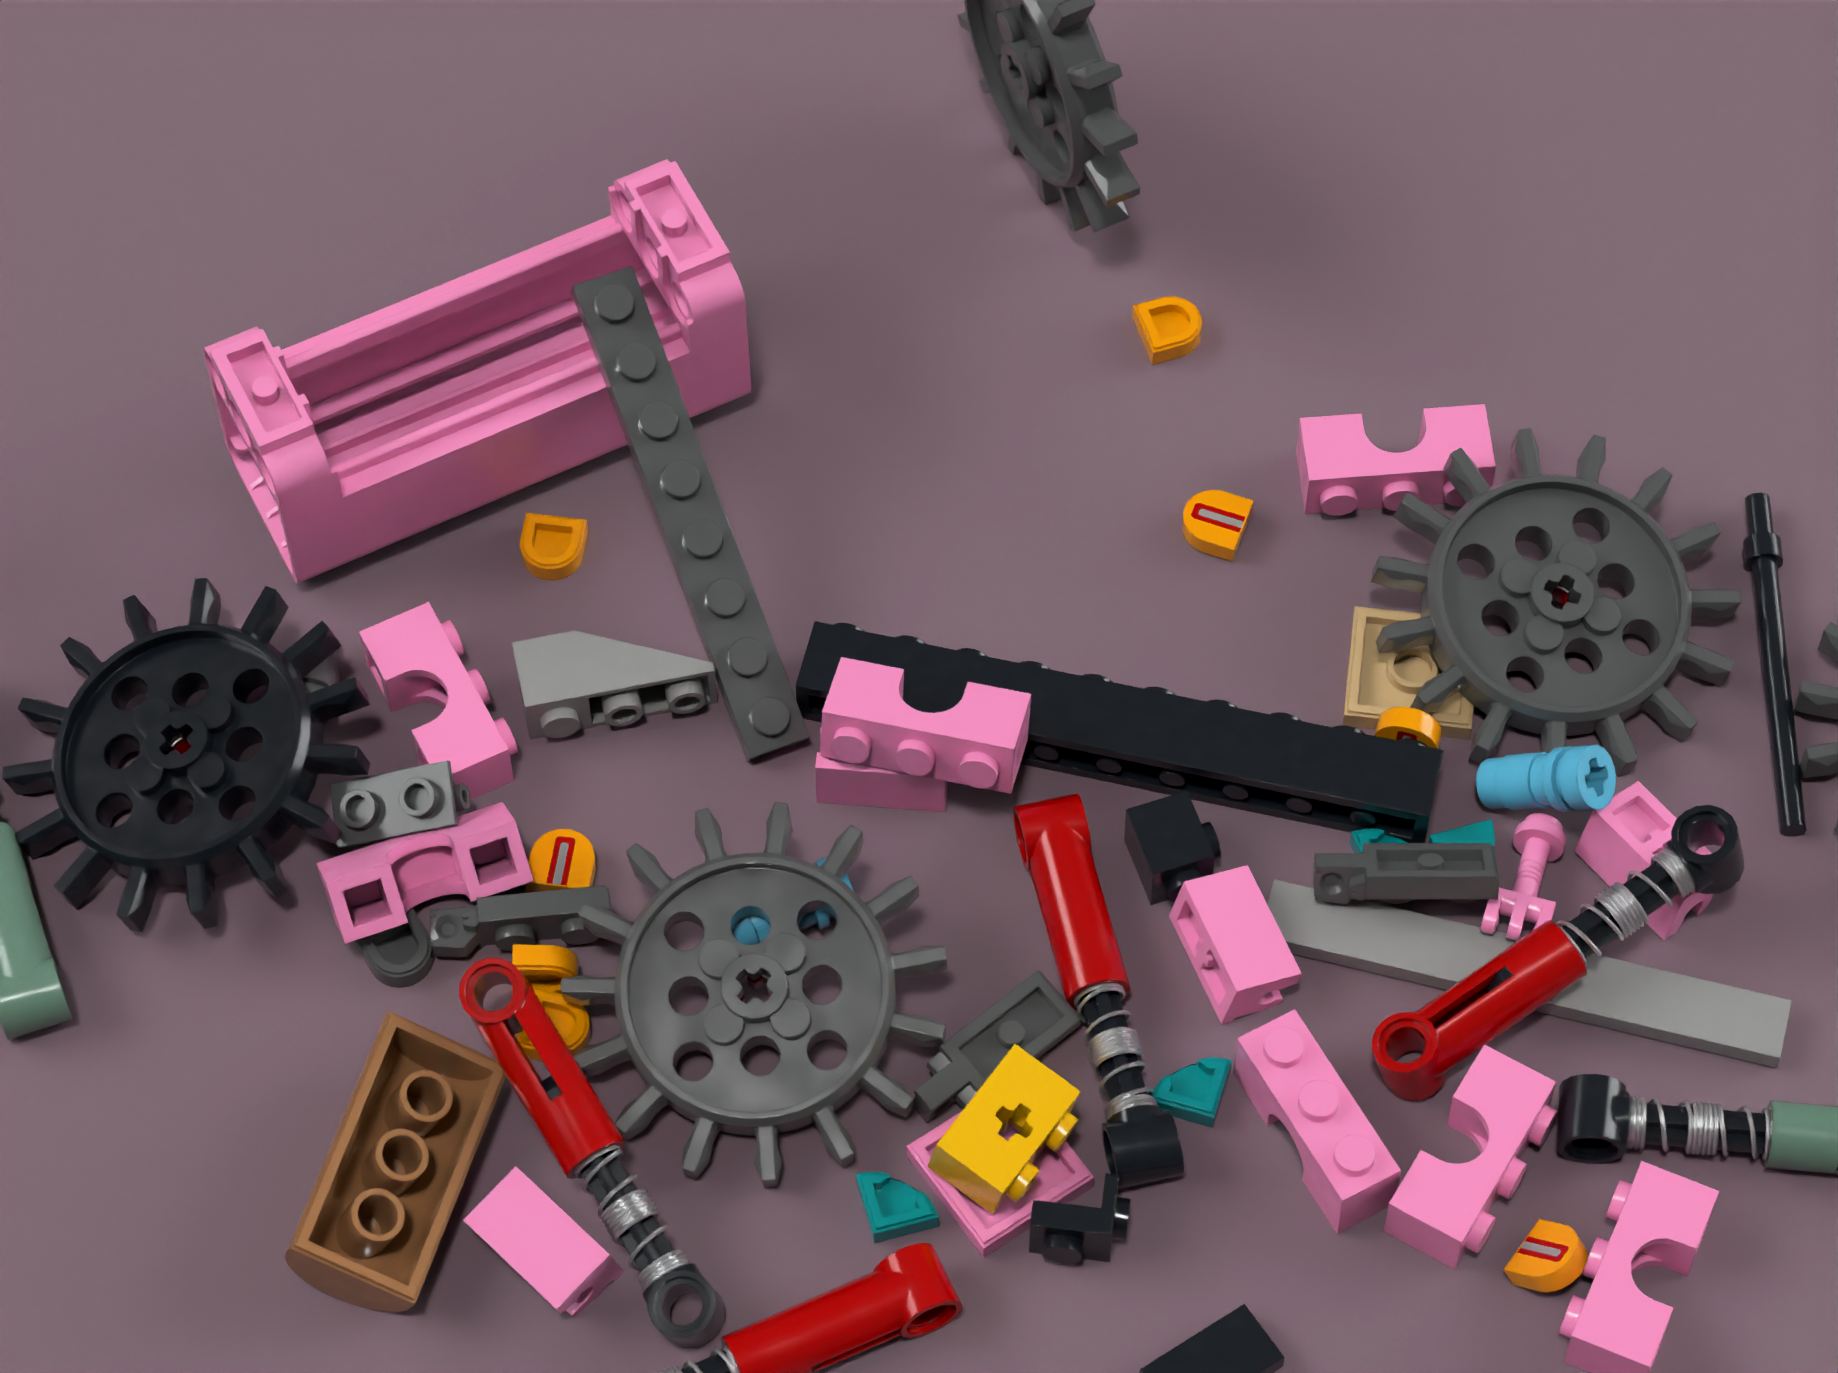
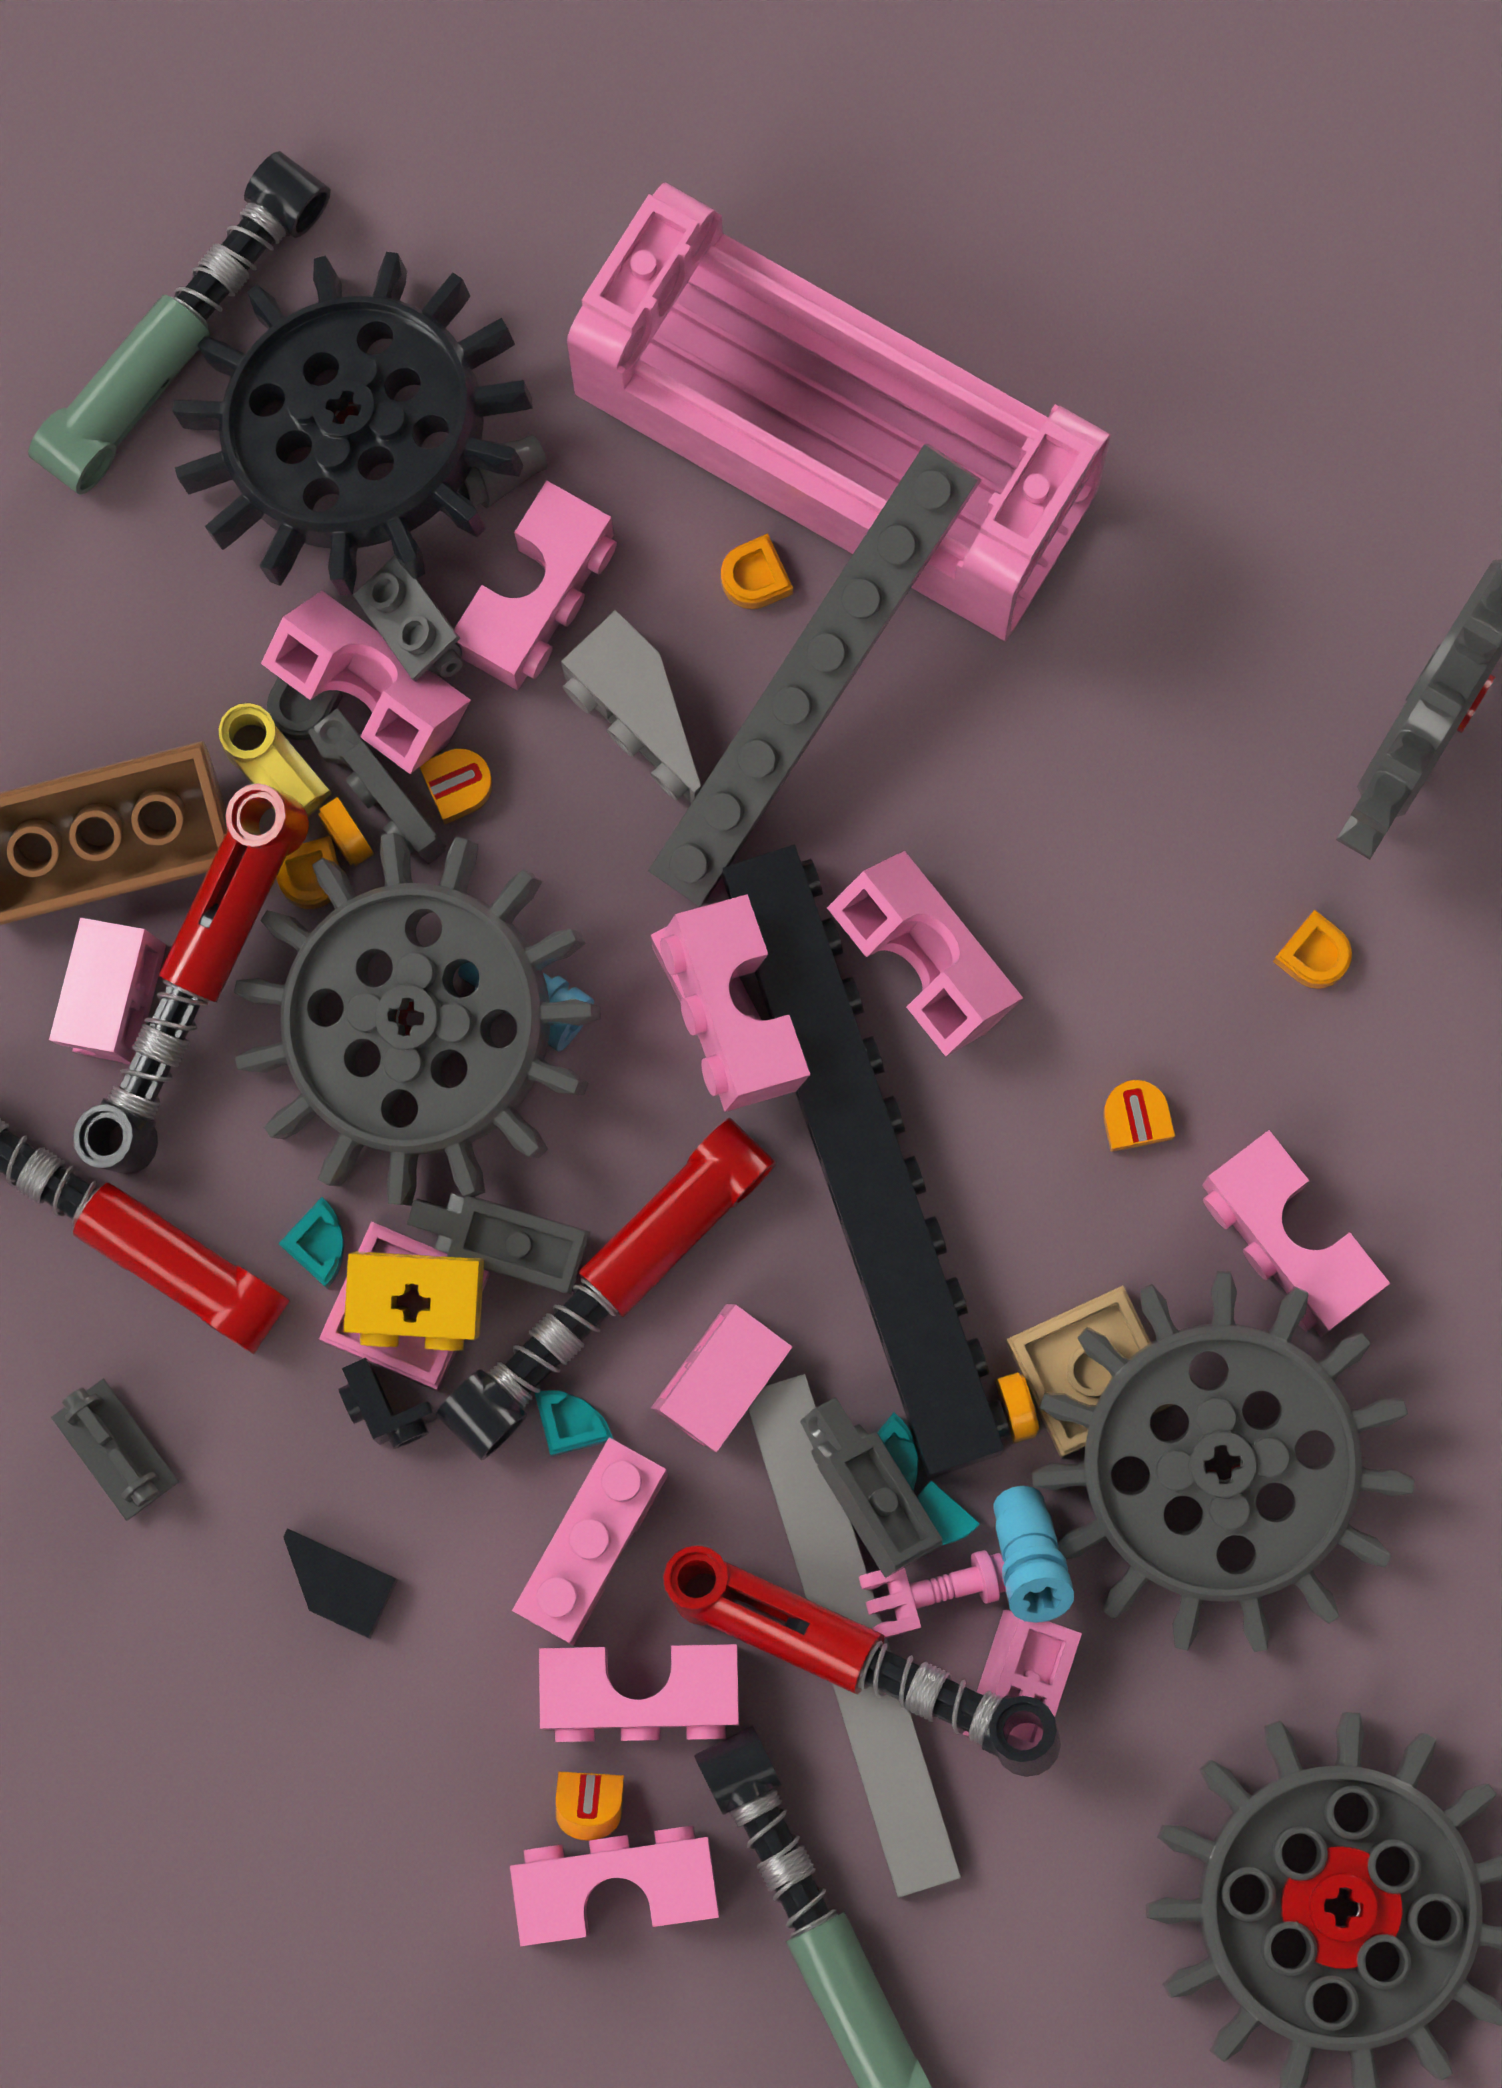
camera: 60 degrees right, 20 degrees up
(433, 989) = (275, 761): none -> light yellow piece
(1009, 576) = (903, 913): none -> bright pink arch
(1169, 845) = (776, 1273): black brick -> none
(1763, 558) = (1409, 1612): black bar -> none

